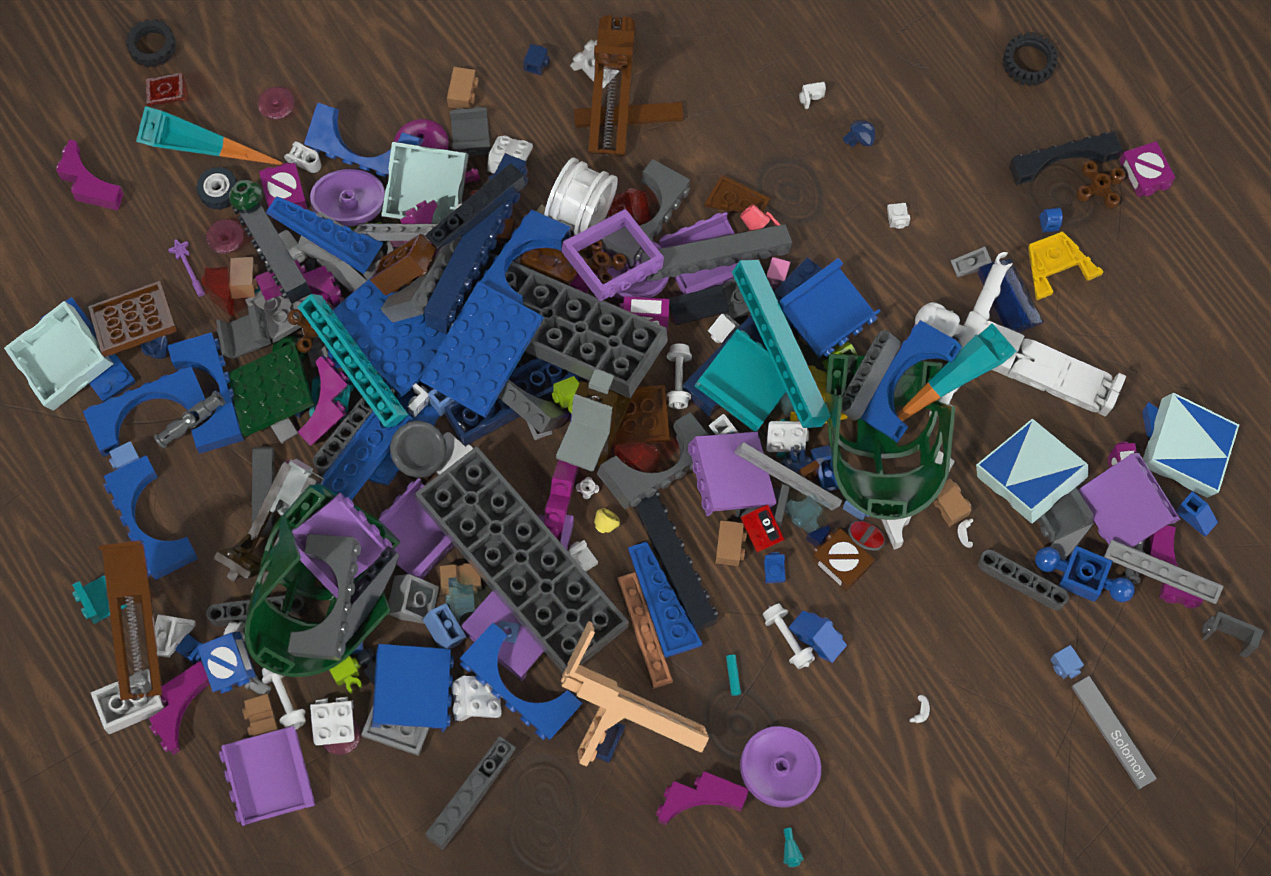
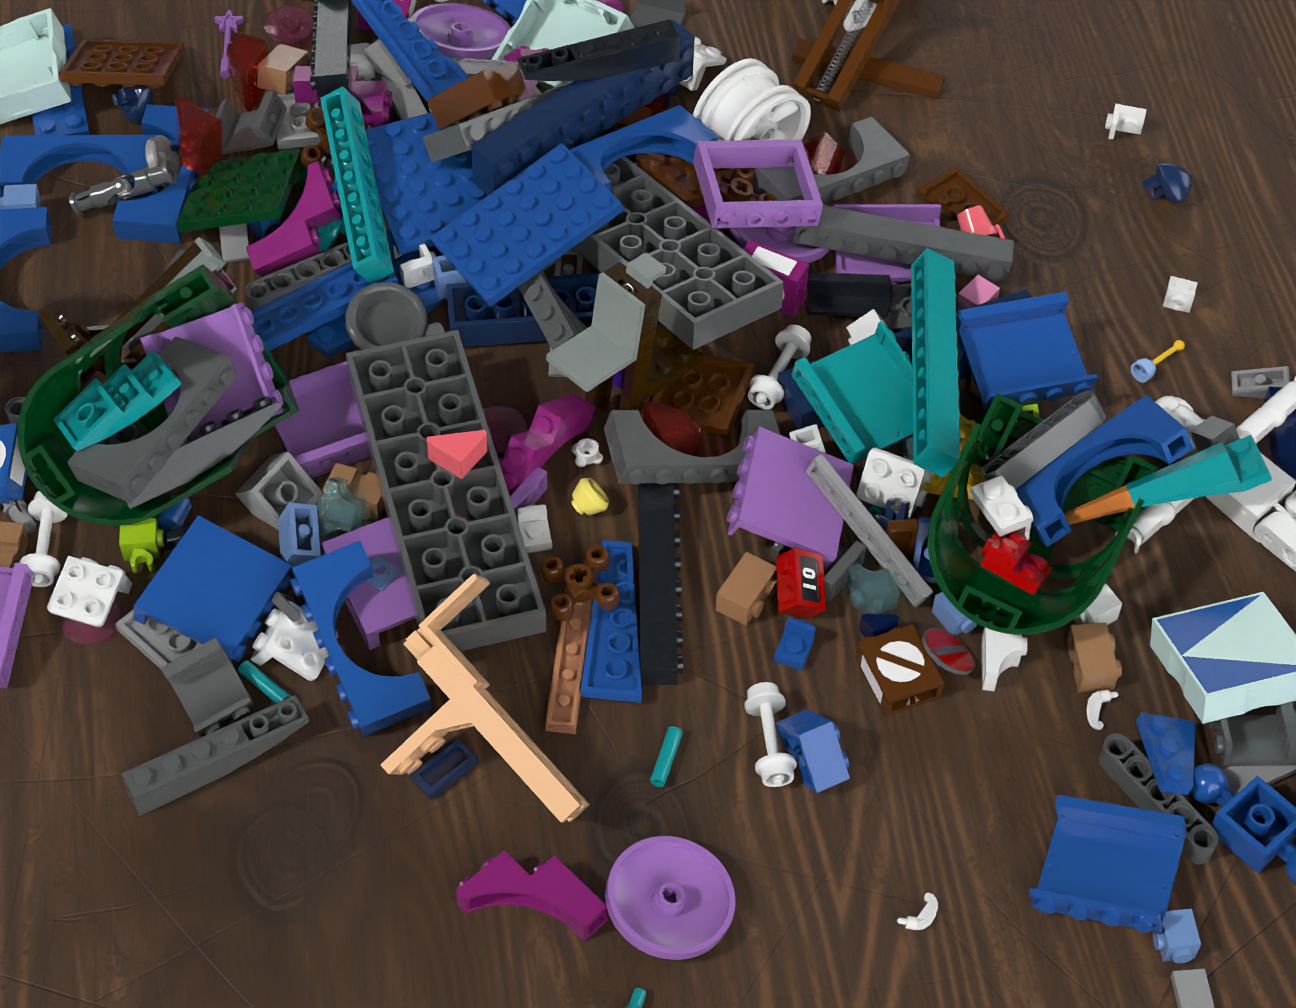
camera: 25 degrees right, 15 degrees down
(202, 384) = (159, 150): none -> light grey tile
(221, 364) = (197, 136): none -> clear red slope
(297, 598) = (117, 403): none -> teal slope
(445, 754) = (208, 687): none -> dark grey panel
(458, 675) = (282, 600): none -> dark grey piece
(472, 732) = (263, 682): none -> teal piece
(523, 537) = (457, 451): none -> coral slope
(534, 489) = (506, 422): none -> clear pink dish
(630, 593) = (580, 583): none -> reddish brown gear
(865, 432) = (1002, 507): none -> white bracket
(885, 464) = (1009, 560): none -> red plate
(899, 281) = (1145, 369): none -> light blue hinge
(968, 326) = (1212, 432): none -> dark grey brick
(1014, 637) = (1110, 864): none -> blue panel
(1019, 548) = (1169, 750): none -> blue wing

